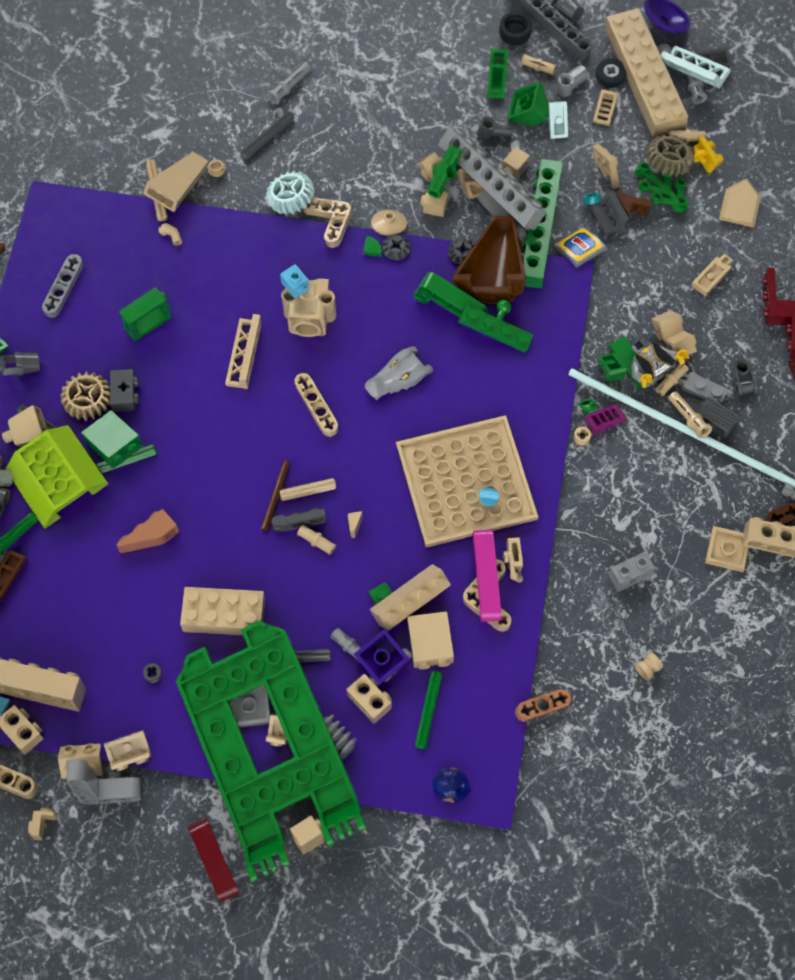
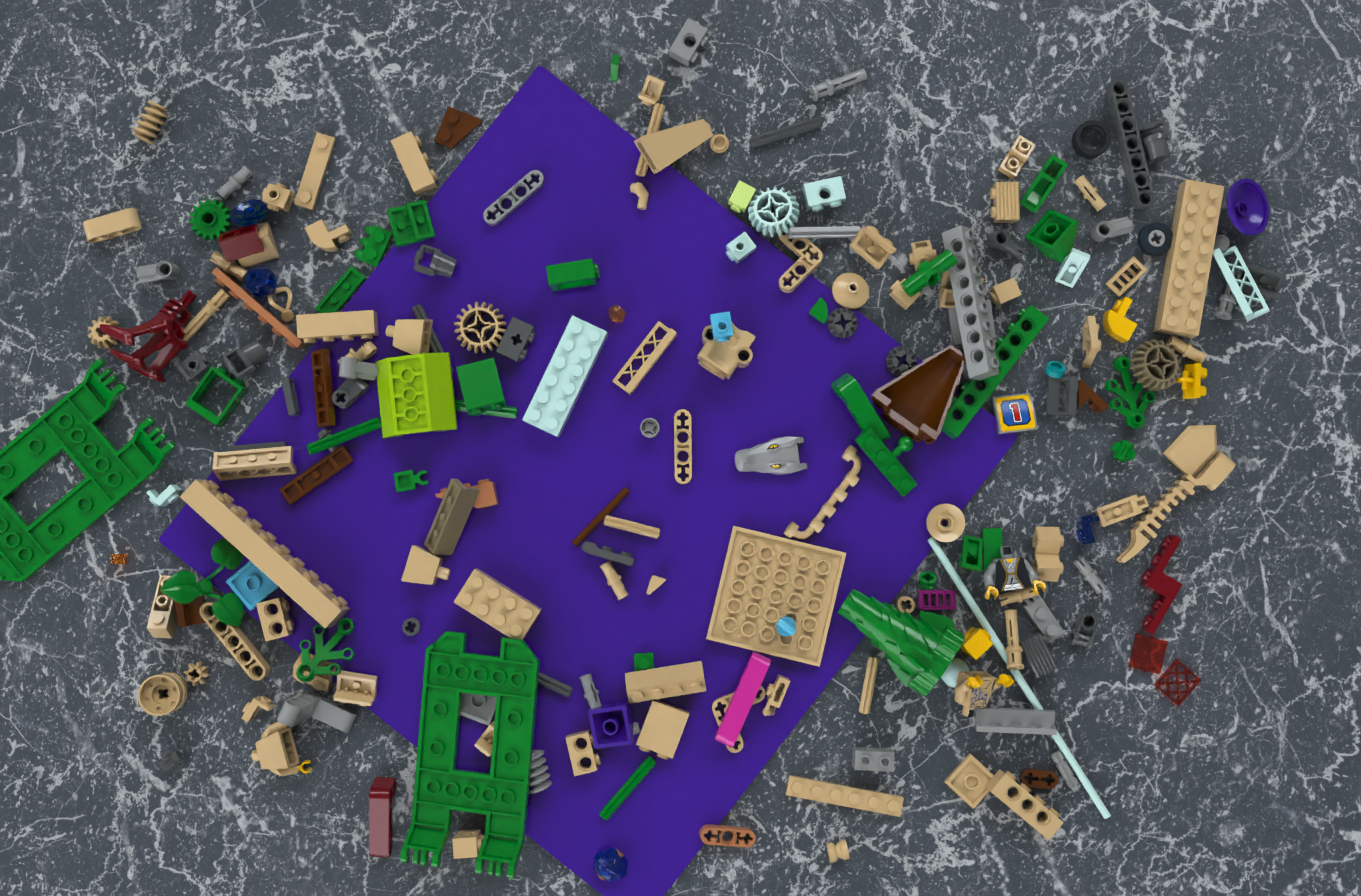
camera: 25 degrees right, 20 degrees up
(80, 847) = (278, 751): none -> tan torso
(83, 732) = (323, 652): none -> green plant
(84, 550) = (407, 480): none -> green plate
(98, 154) = (615, 68): none -> green tile
(138, 155) = (652, 90): none -> tan bracket
(138, 614) = (424, 567): none -> tan torso
(141, 556) = (450, 518): none -> dark tan panel
(149, 108) = (690, 32): none -> light grey brick
(182, 397) = (565, 376): none -> light aqua brick
(200, 328) = (616, 313): none -> clear orange plate
(257, 196) = (741, 197): none -> yellowish green brick
(276, 398) = (650, 425): none -> light grey wheel
(278, 230) = (740, 248): none -> light aqua brick
(315, 166) = (832, 186): none -> light aqua brick
(341, 188) = (823, 232): none -> light grey axle
(387, 179) = (872, 246): none -> tan bracket
(464, 68) = (1016, 157): none -> tan slope
(469, 391) = (838, 495): none -> tan bar
(475, 100) = (1005, 202): none -> tan brick
(575, 344) = (955, 524): none -> tan dish
(591, 516) = (868, 686): none -> tan axle
(608, 454) = (914, 648): none -> green cone
(620, 143) = (1116, 324): none -> yellow brick
(626, 618) = (844, 795): none -> tan plate
(658, 430) = (976, 642): none -> yellow brick
(658, 468) = (951, 673): none -> light aqua hair
(683, 465) = (975, 689): none -> tan torso
(685, 230) = (1123, 451): none -> green gear
(693, 302) = (1084, 530): none -> clear blue bracket
(720, 335) = (1089, 575): none -> light grey pin
(732, 476) = (1015, 721): none -> light grey fence
(741, 278) = (1211, 476): none -> tan piece

